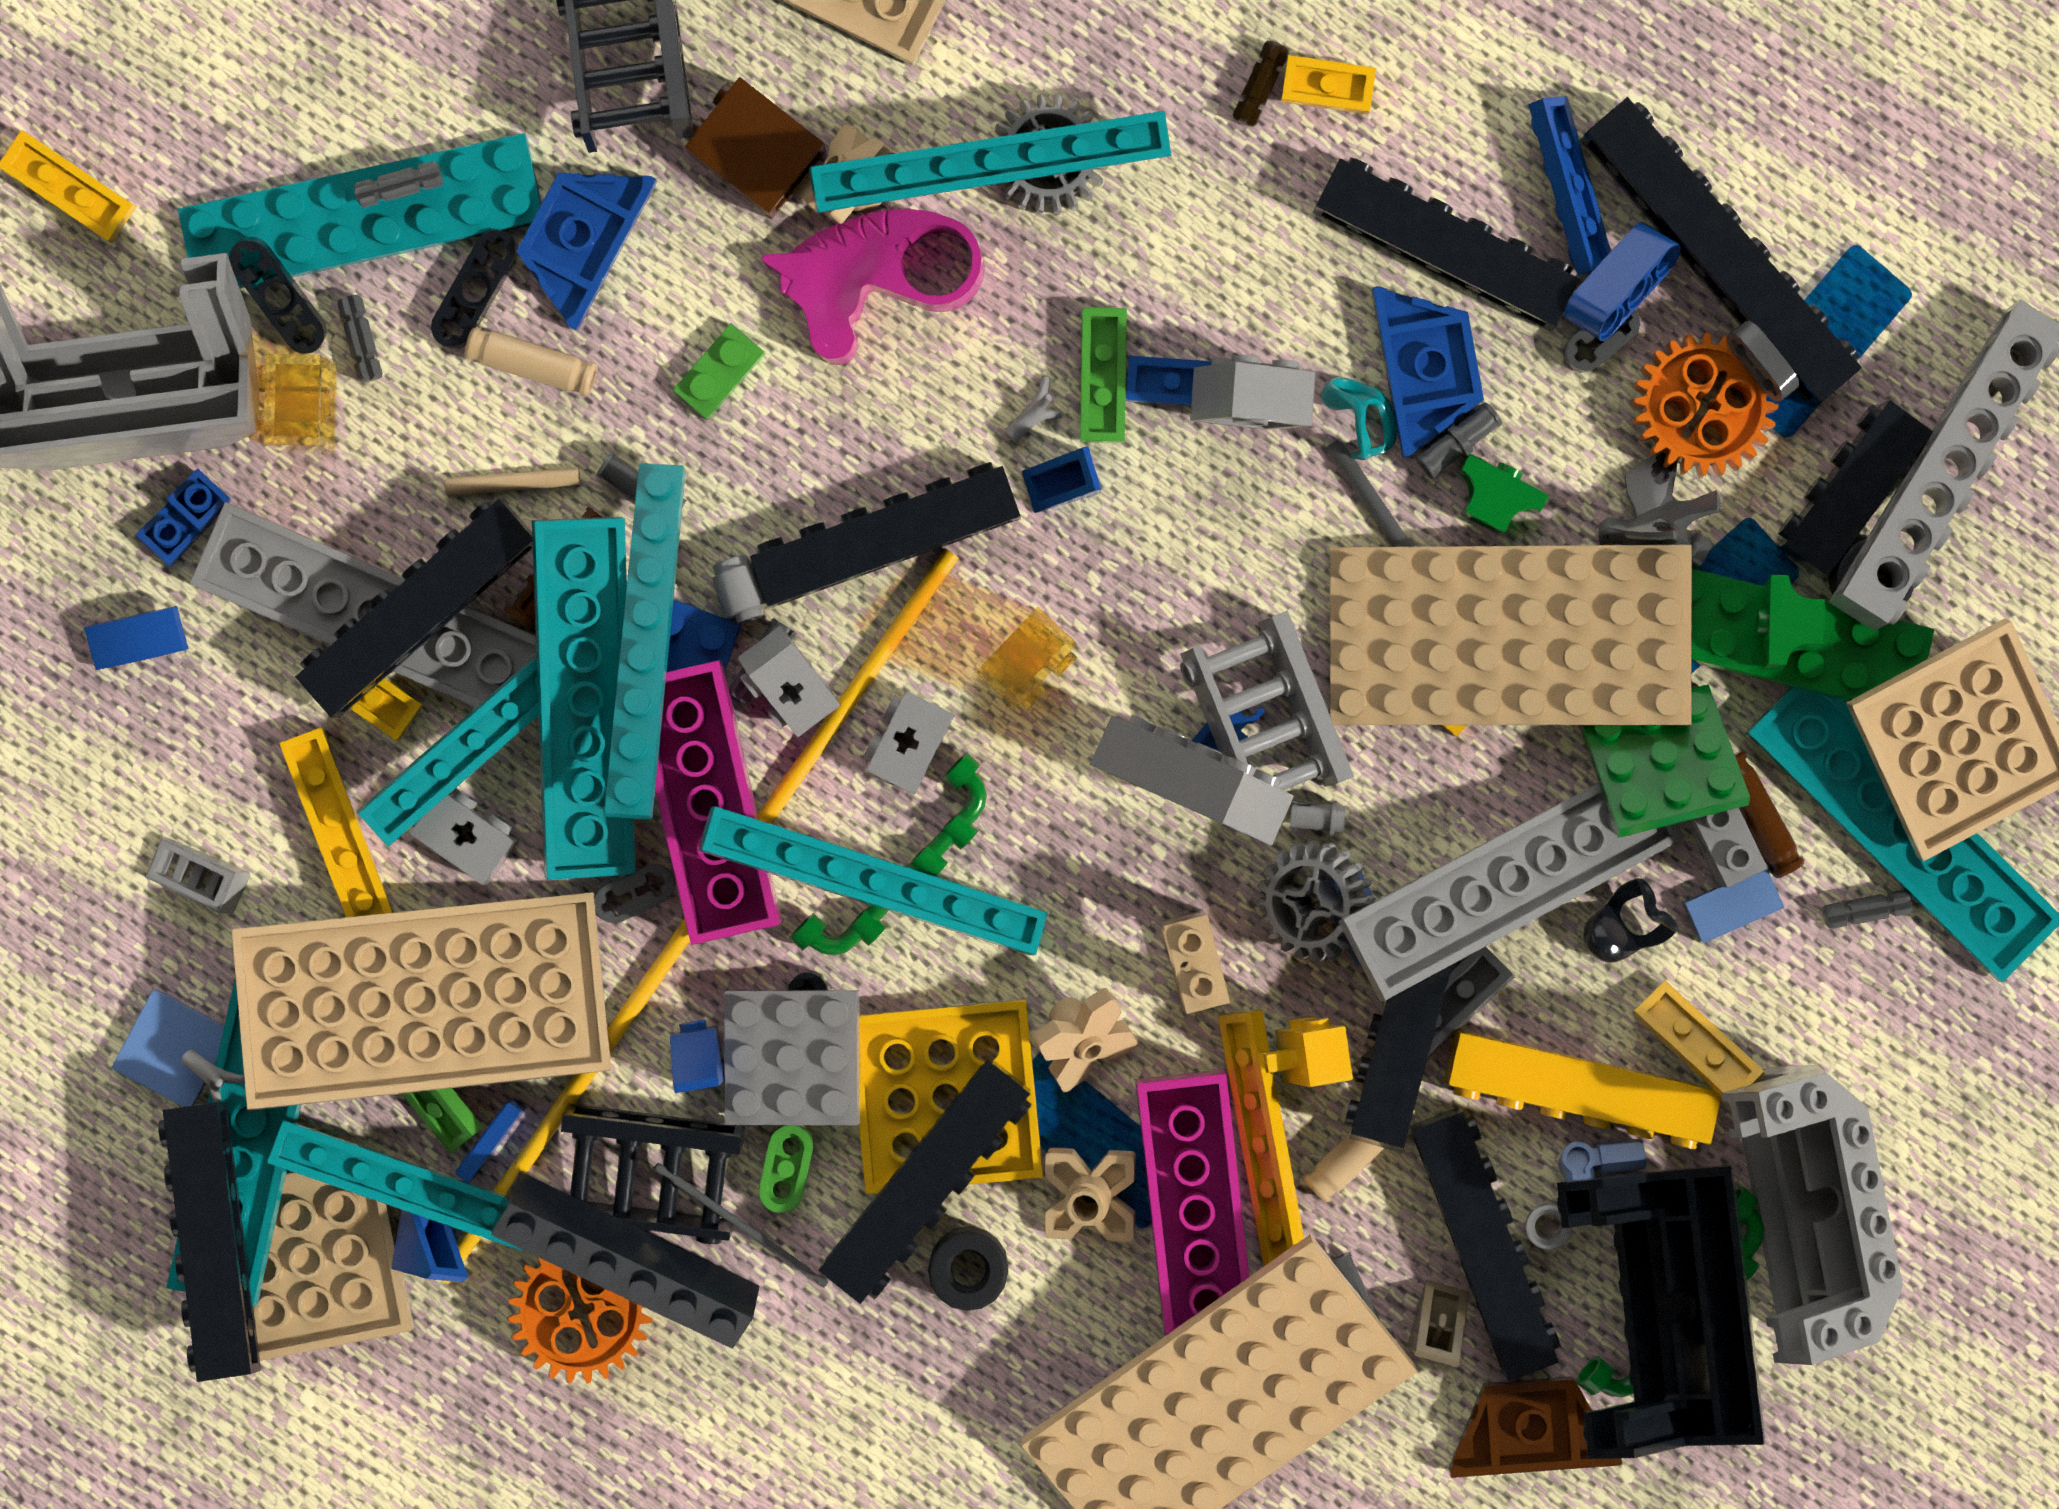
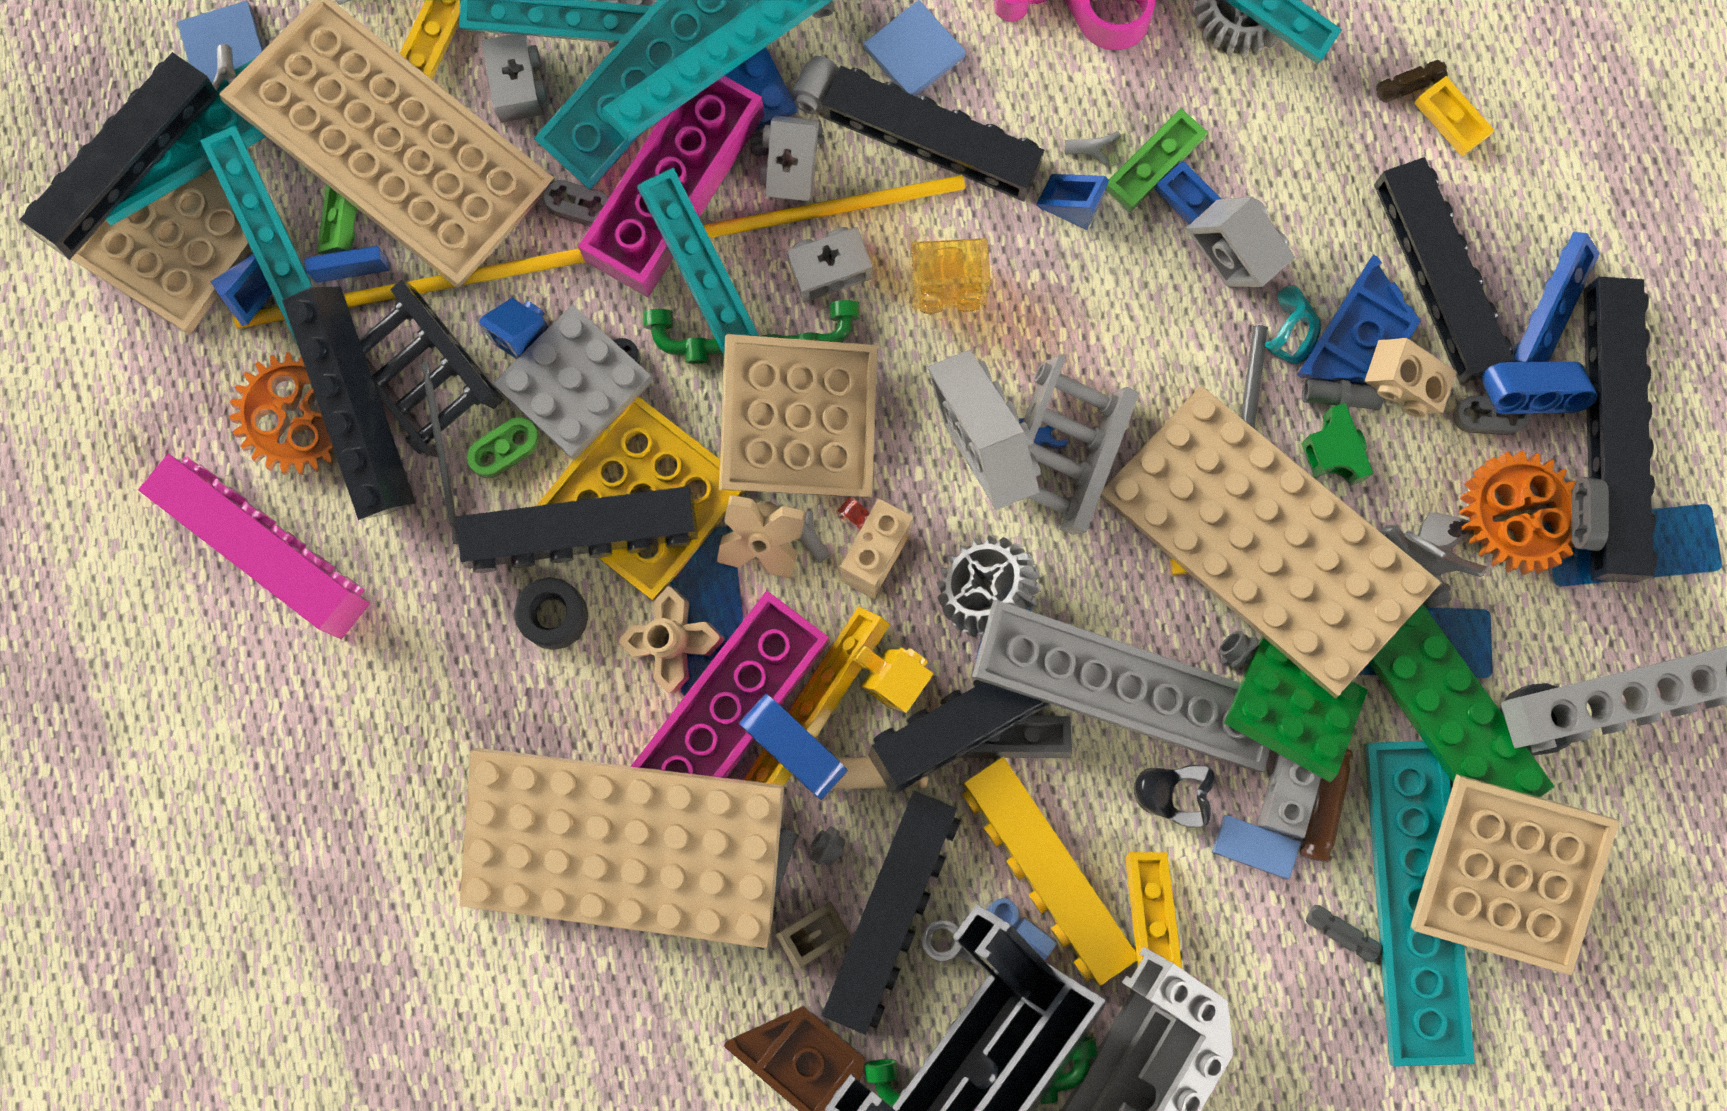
camera: 45 degrees right, 10 degrees down
(668, 1451) = (256, 544): none -> dark pink brick
(792, 469) = (914, 49): none -> medium blue tile
(1018, 908) = (798, 416): none -> tan plate
(1123, 996) = (811, 539): none -> light grey bar
(1143, 942) = (853, 512): none -> clear red piece
(1284, 1192) = (793, 746): none -> blue beam
(1318, 816) = (1038, 541): light grey pin -> none
(1383, 1240) = (827, 846): none -> dark grey plate
(1504, 377) = (1410, 377): none -> tan brick
(1570, 753) = (1238, 649): none -> dark grey plate
(1787, 623) = (1462, 689): green brick -> none
(1853, 489) = (1576, 652): black brick -> none

